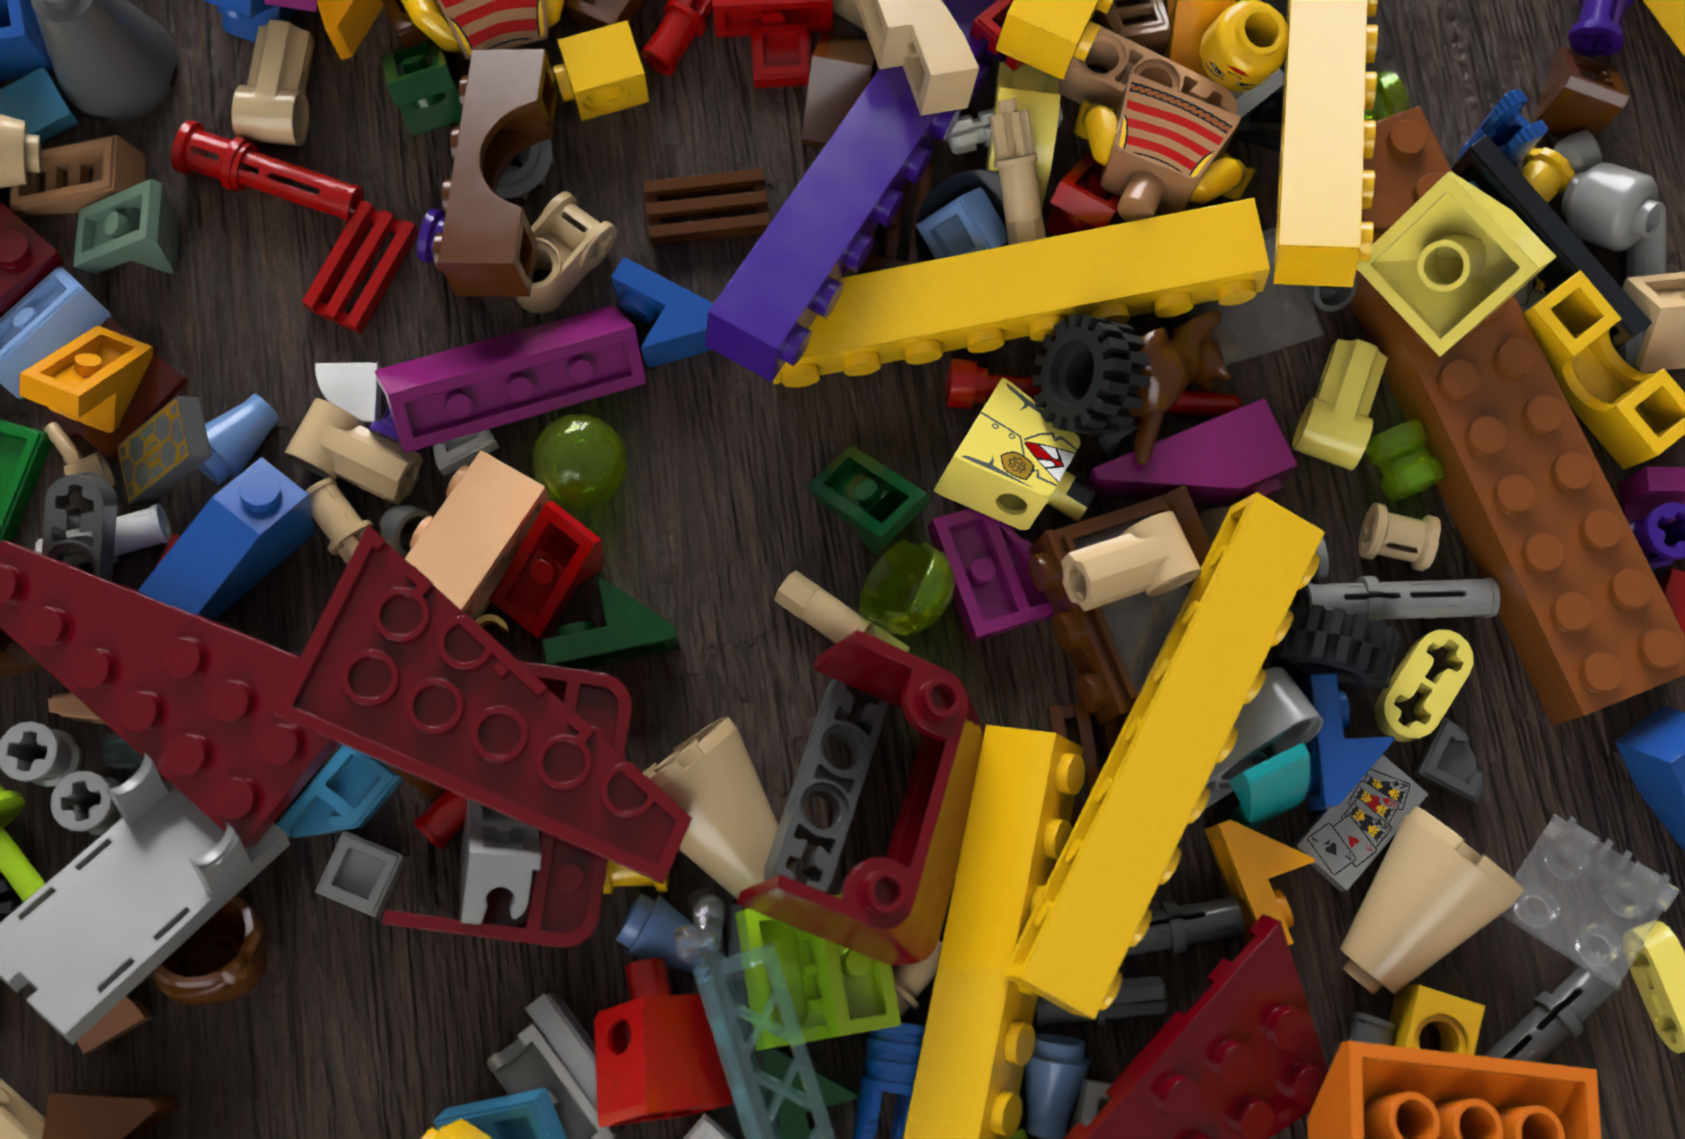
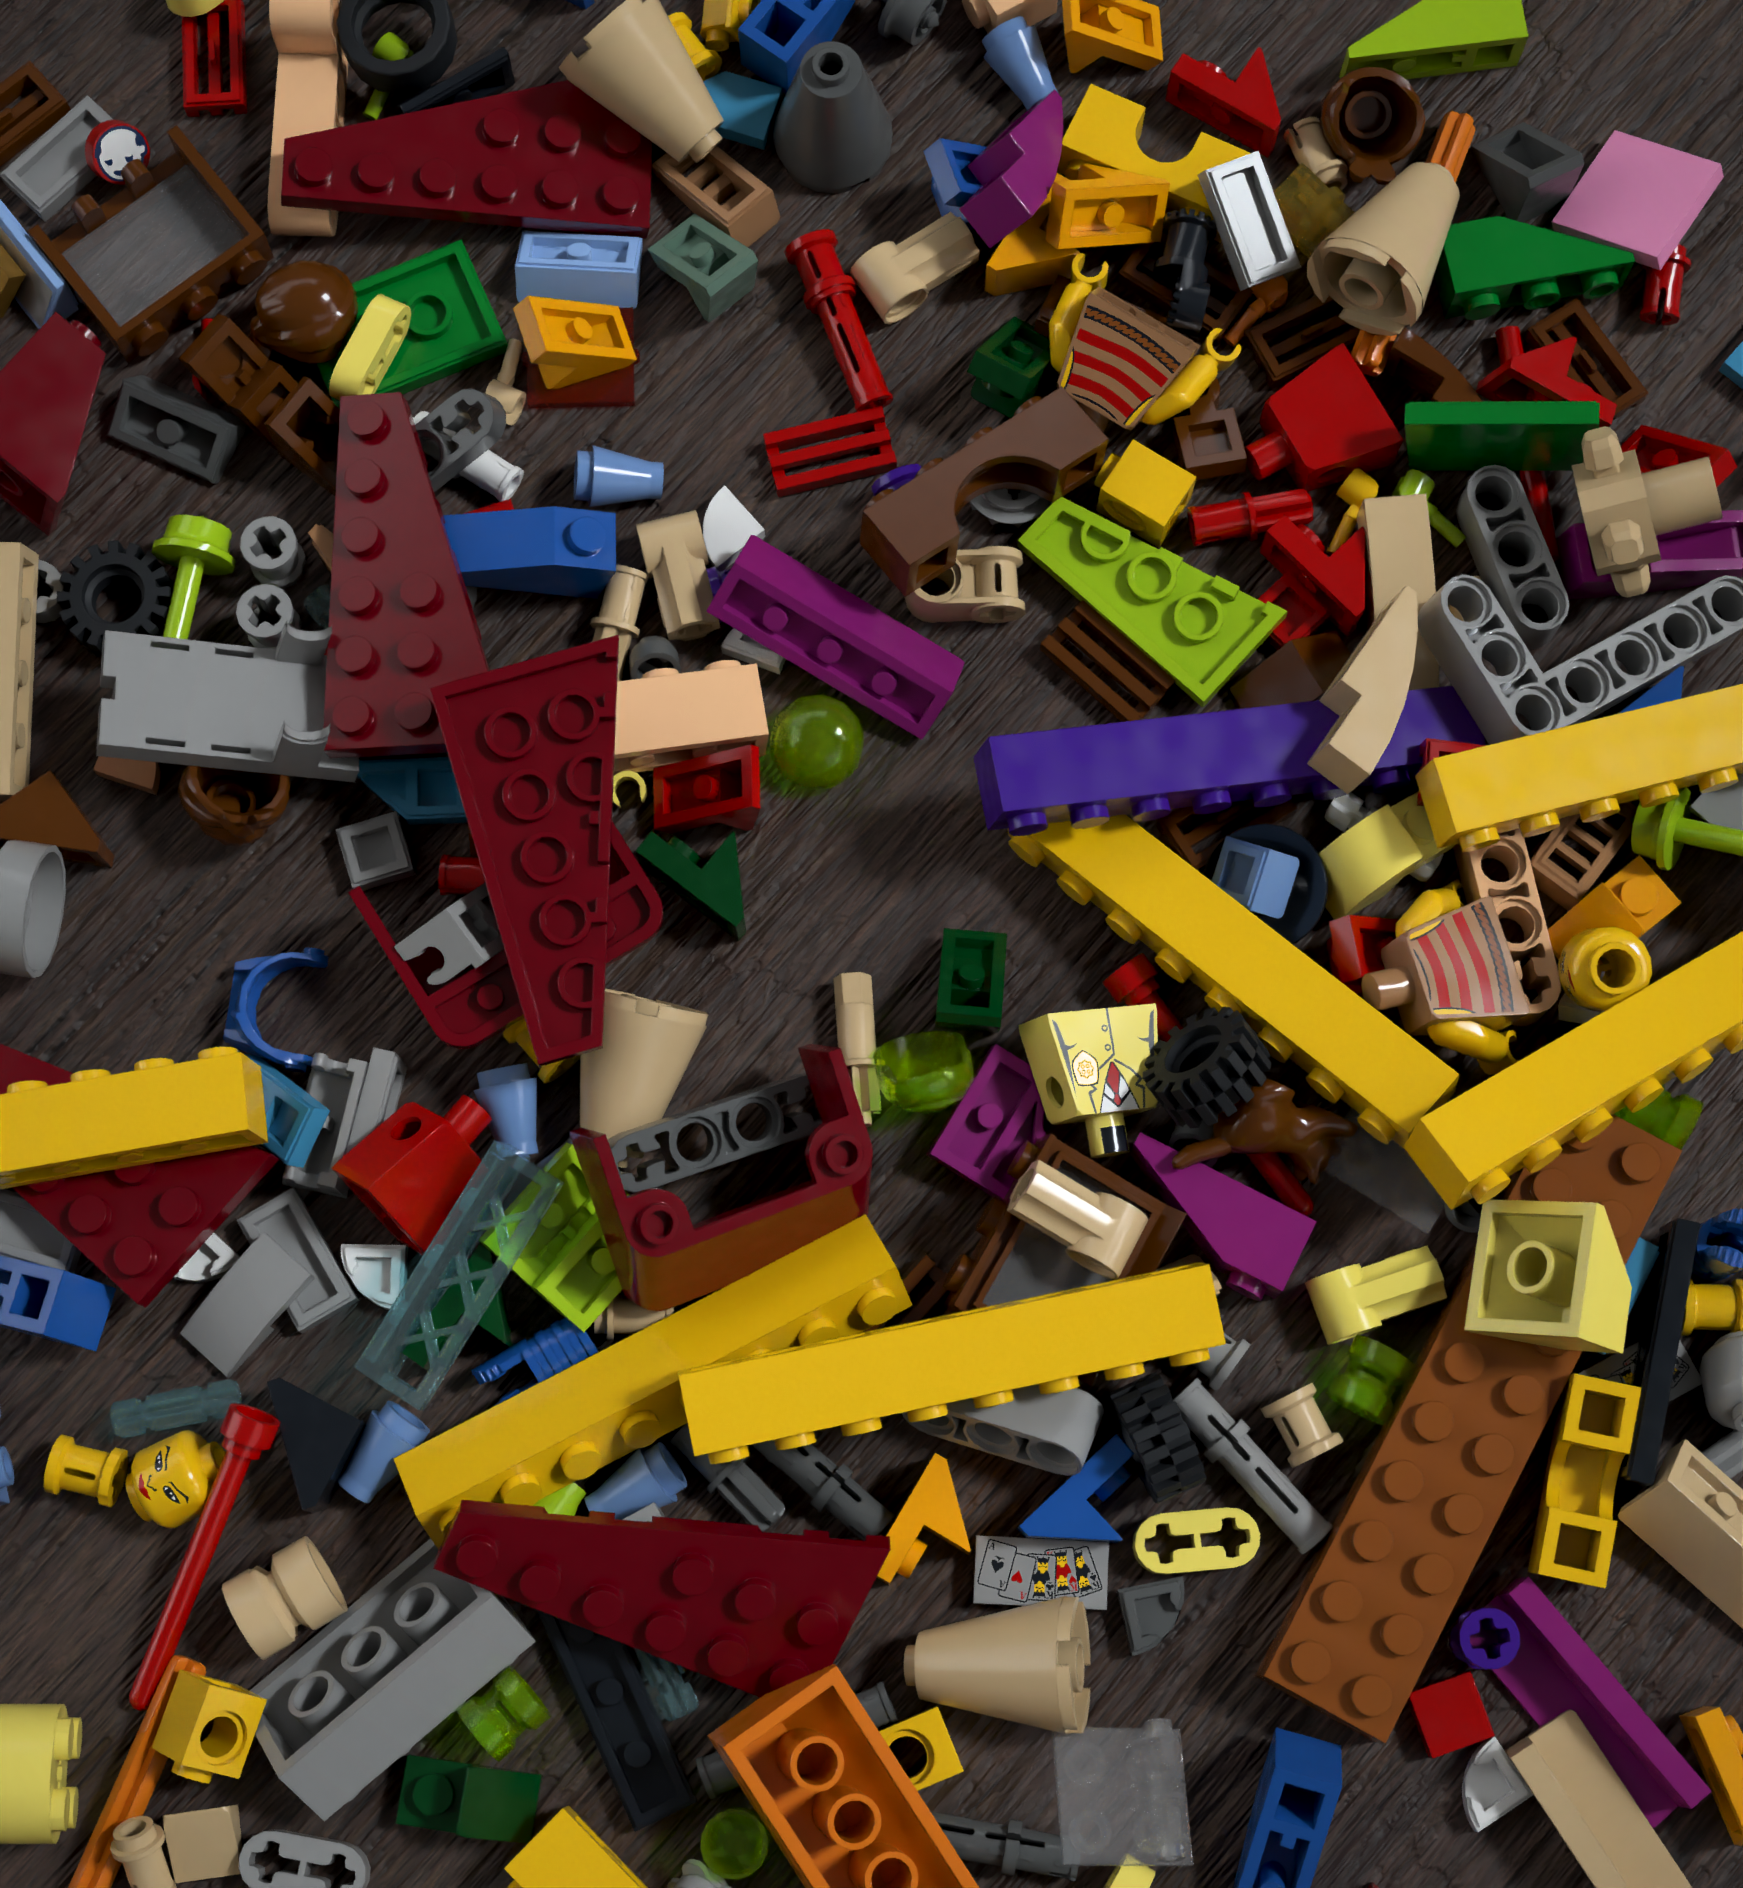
camera: 55 degrees right, 0 degrees up
(163, 450) = (562, 439): dark grey tile -> none
(380, 1073) = (247, 984): none -> blue helmet
(678, 312) = (988, 683): blue slope -> none
(705, 934) = (533, 1133): clear arm -> none
(708, 127) = (1171, 611): none -> lime wing
(1017, 172) = (1327, 878): tan piece -> none
(1271, 787) = (996, 1471): teal slope -> none

